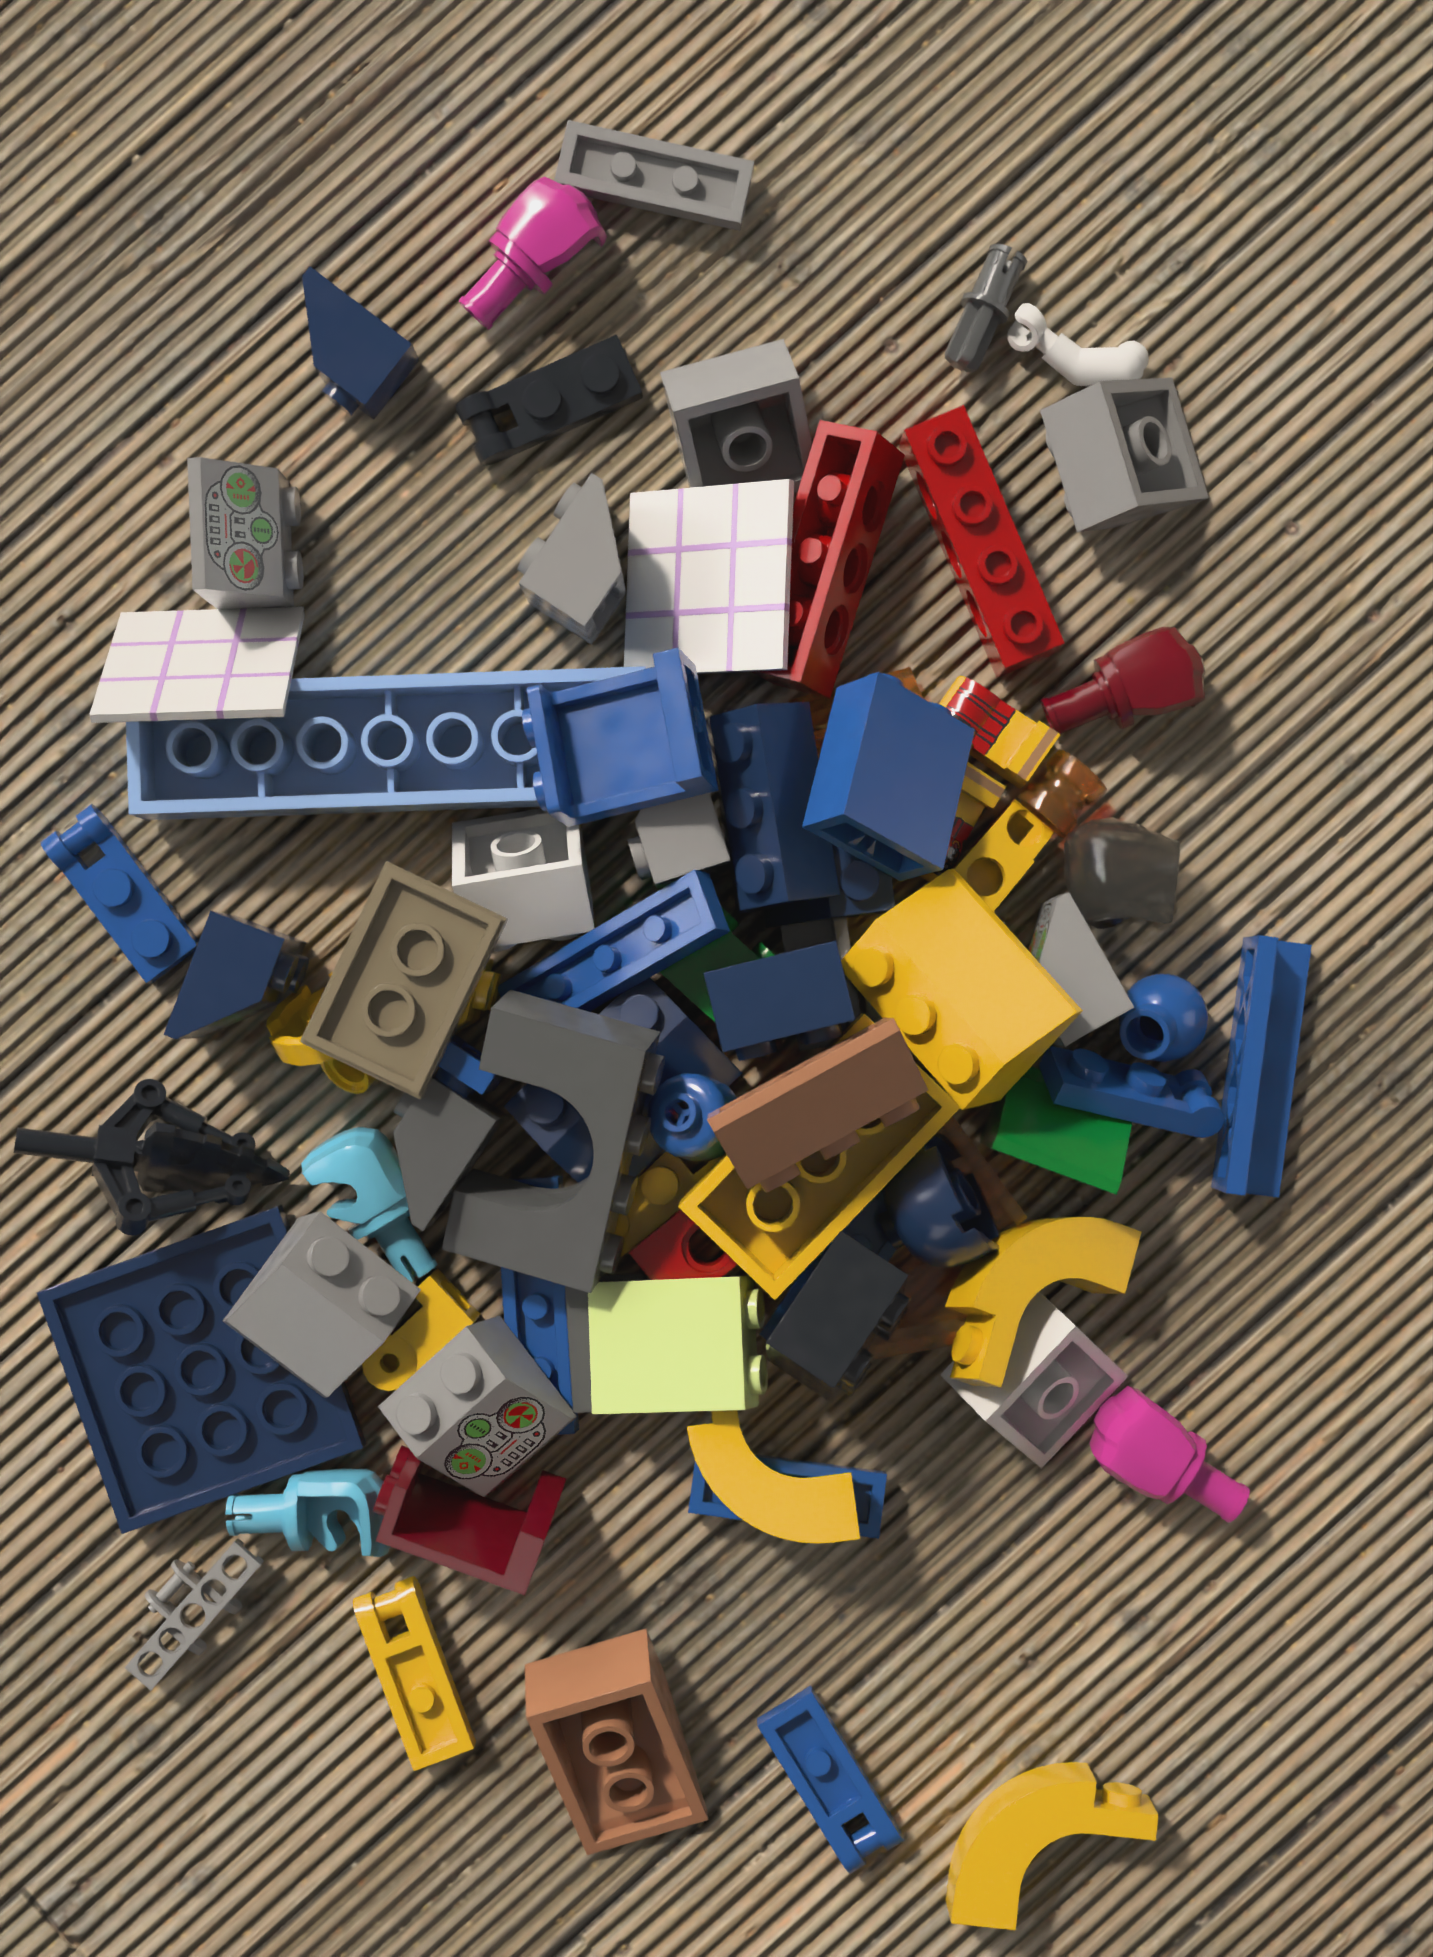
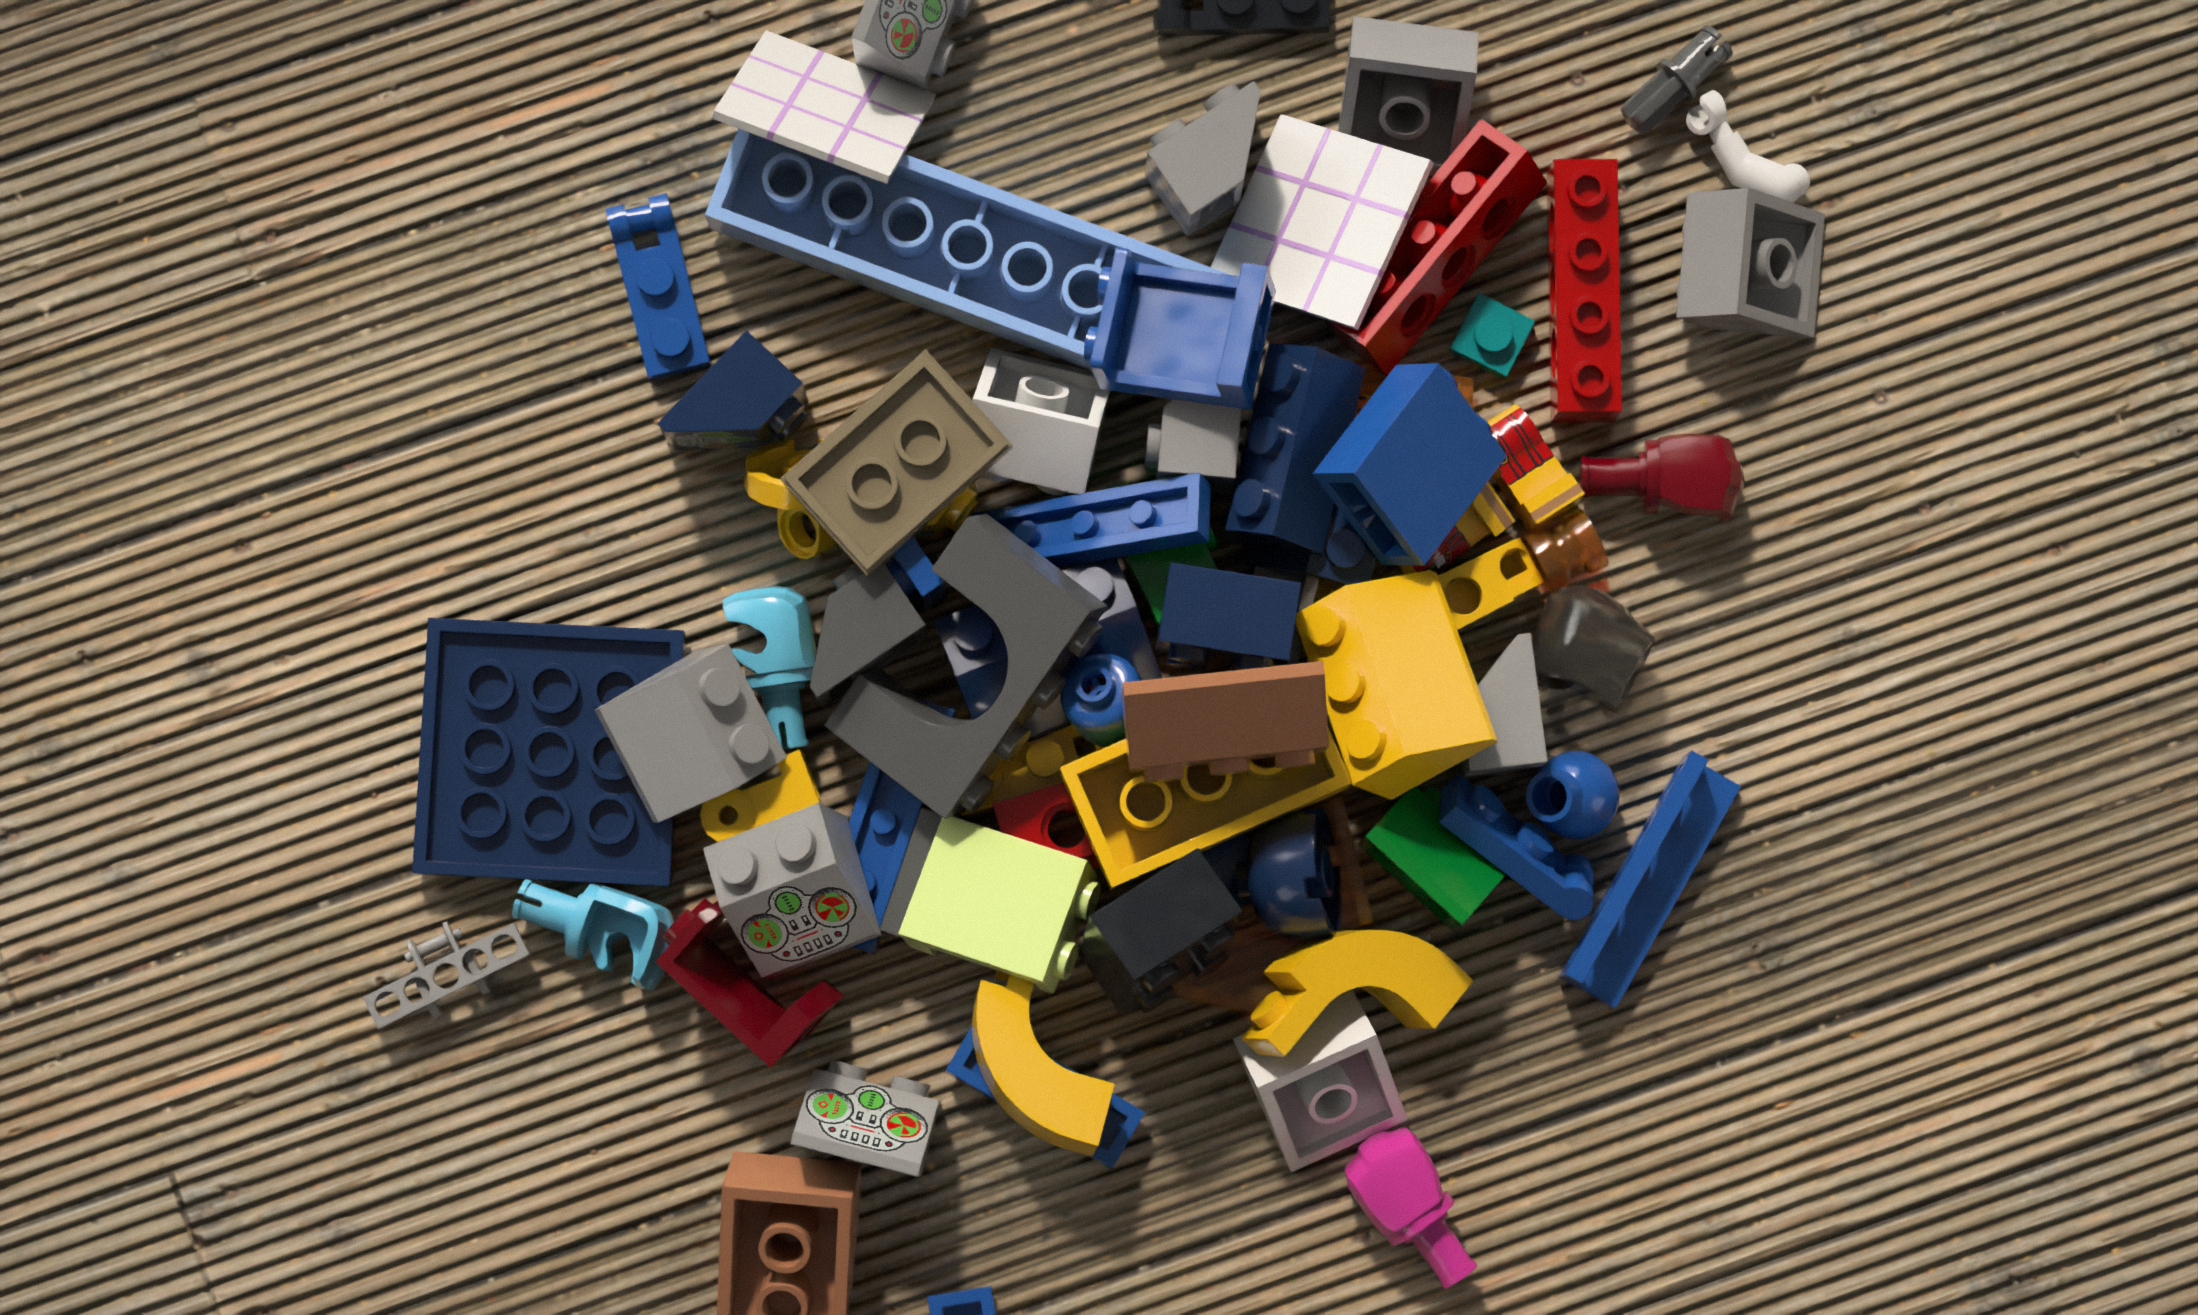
camera: 15 degrees right, 5 degrees down
(168, 1159) = (600, 553): black bar -> none
(414, 1675) = (626, 1119): yellow plate -> none
(634, 1594) = (867, 1120): none -> slope
(910, 620) = (1491, 336): none -> teal plate

